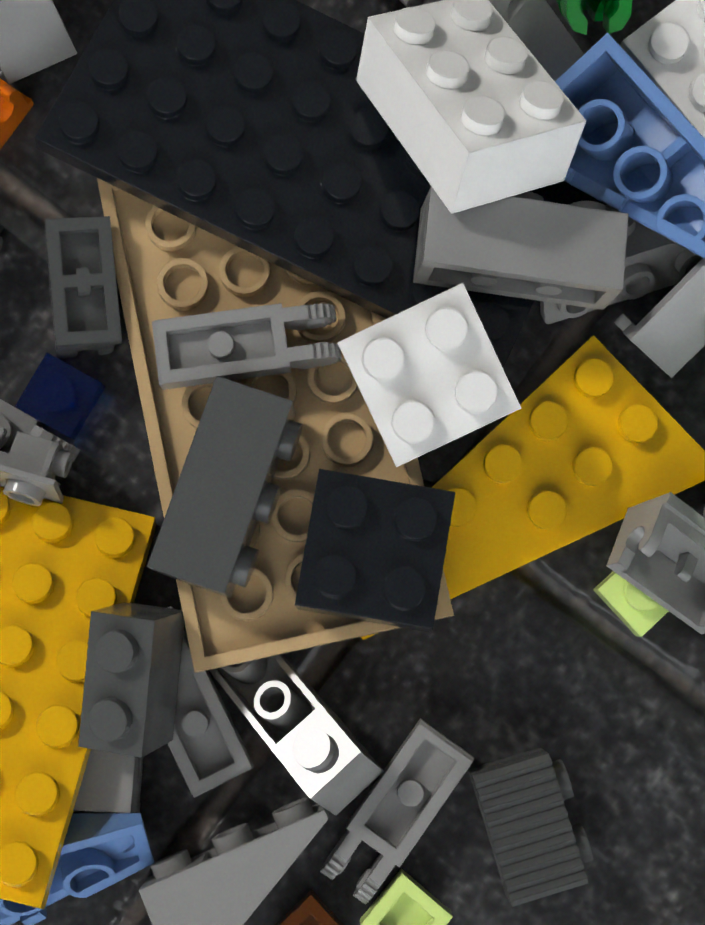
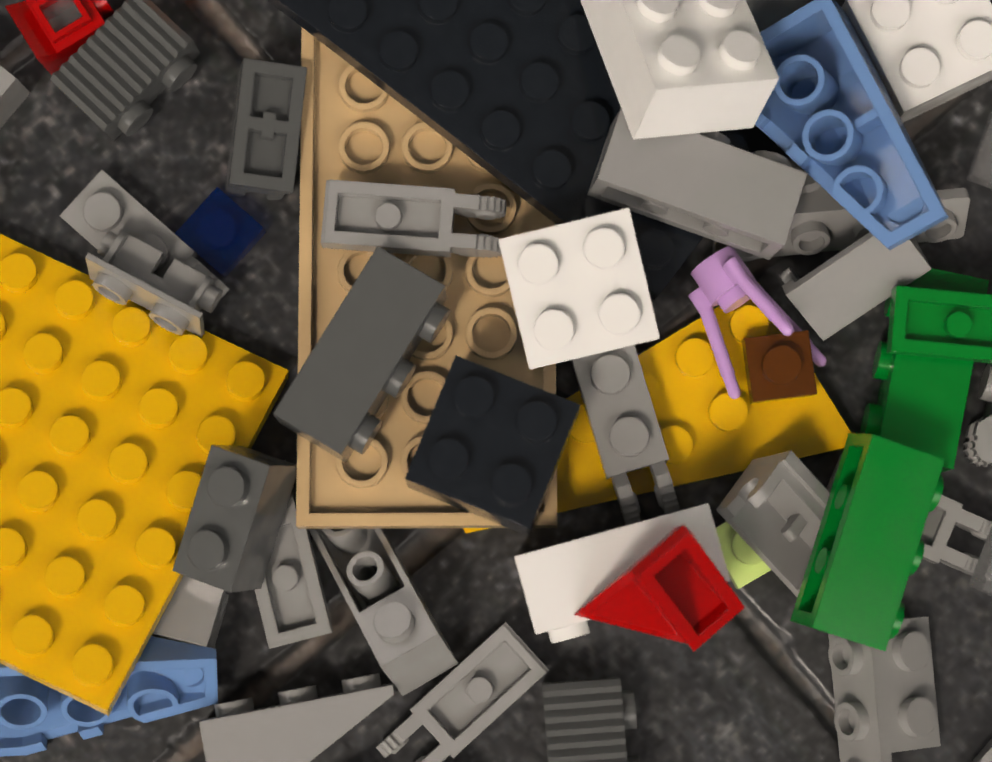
camera: 20 degrees right, 0 degrees up
(498, 504) = (624, 426): none -> light grey hinge
(530, 649) = (570, 574): none -> white brick
(568, 341) = (729, 283): none -> lavender plant
(586, 663) = (668, 594): none -> red slope
(634, 412) = (779, 367): none -> reddish brown plate

